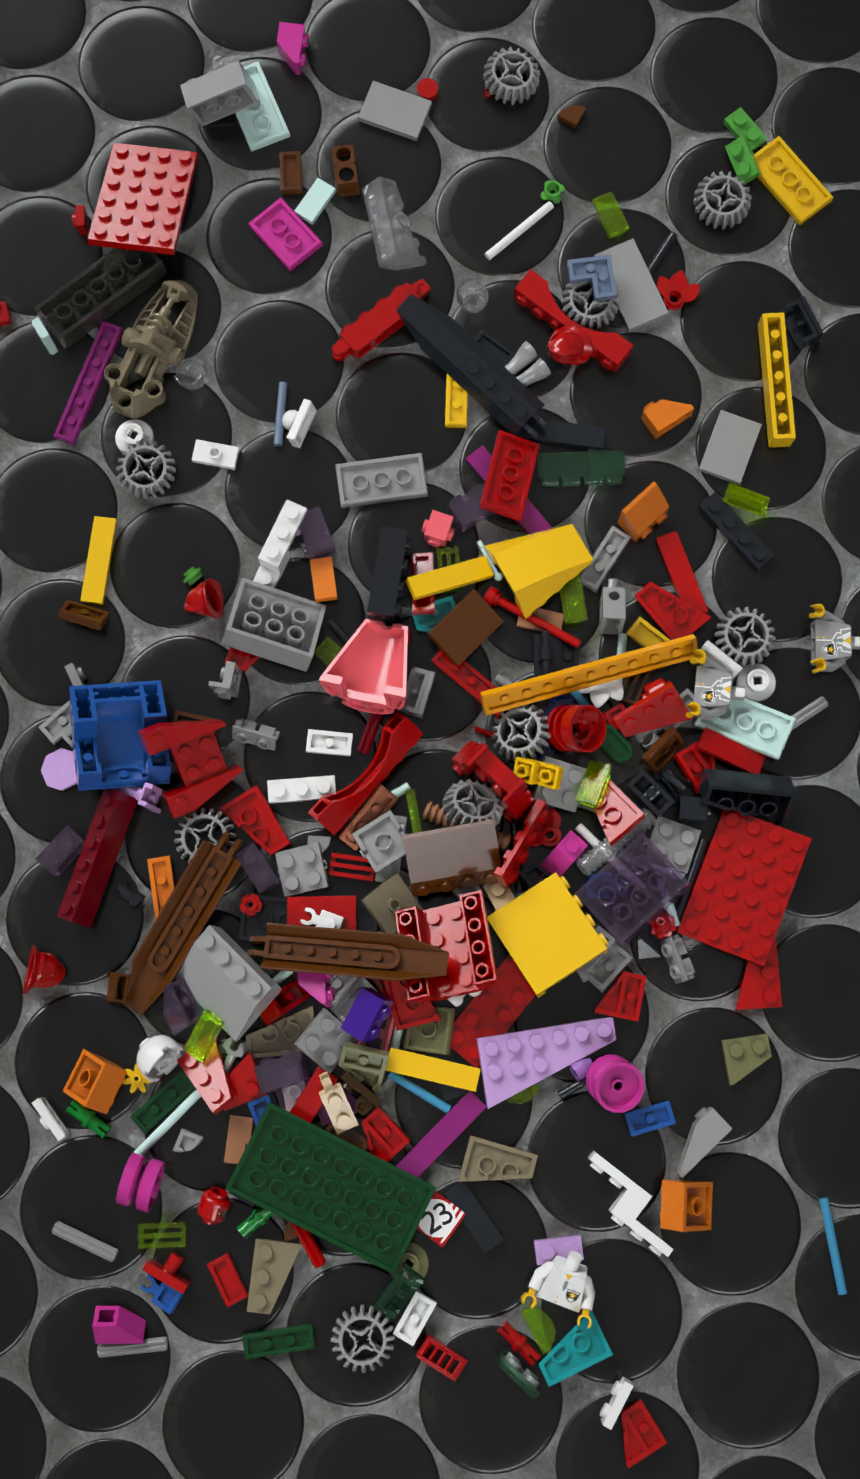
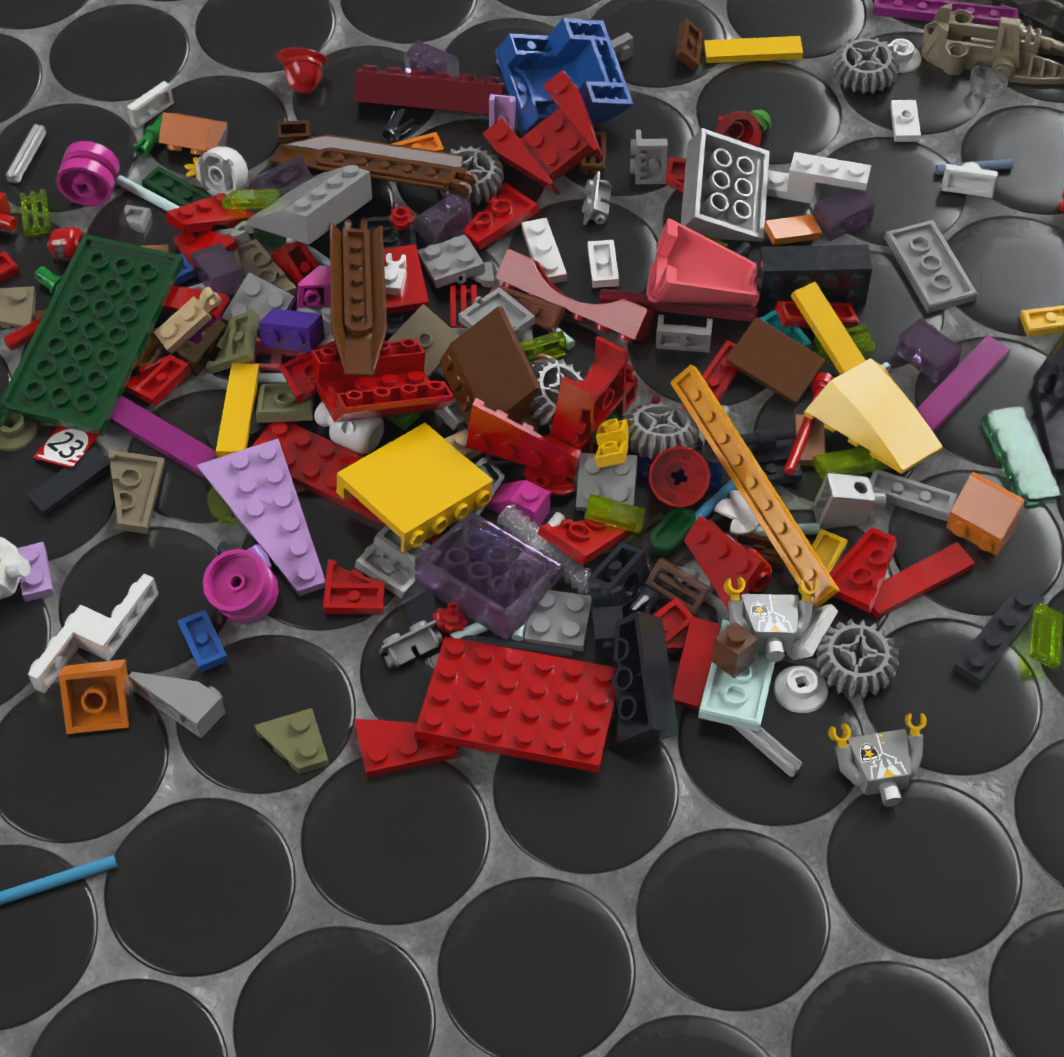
camera: 80 degrees right, 25 degrees down
(419, 1091) = (211, 410): dark azure bar -> none
(438, 529) = (888, 320): coral brick -> none
(509, 475) = (980, 373): red tile -> none
(737, 722) = (734, 649): none -> reddish brown brick

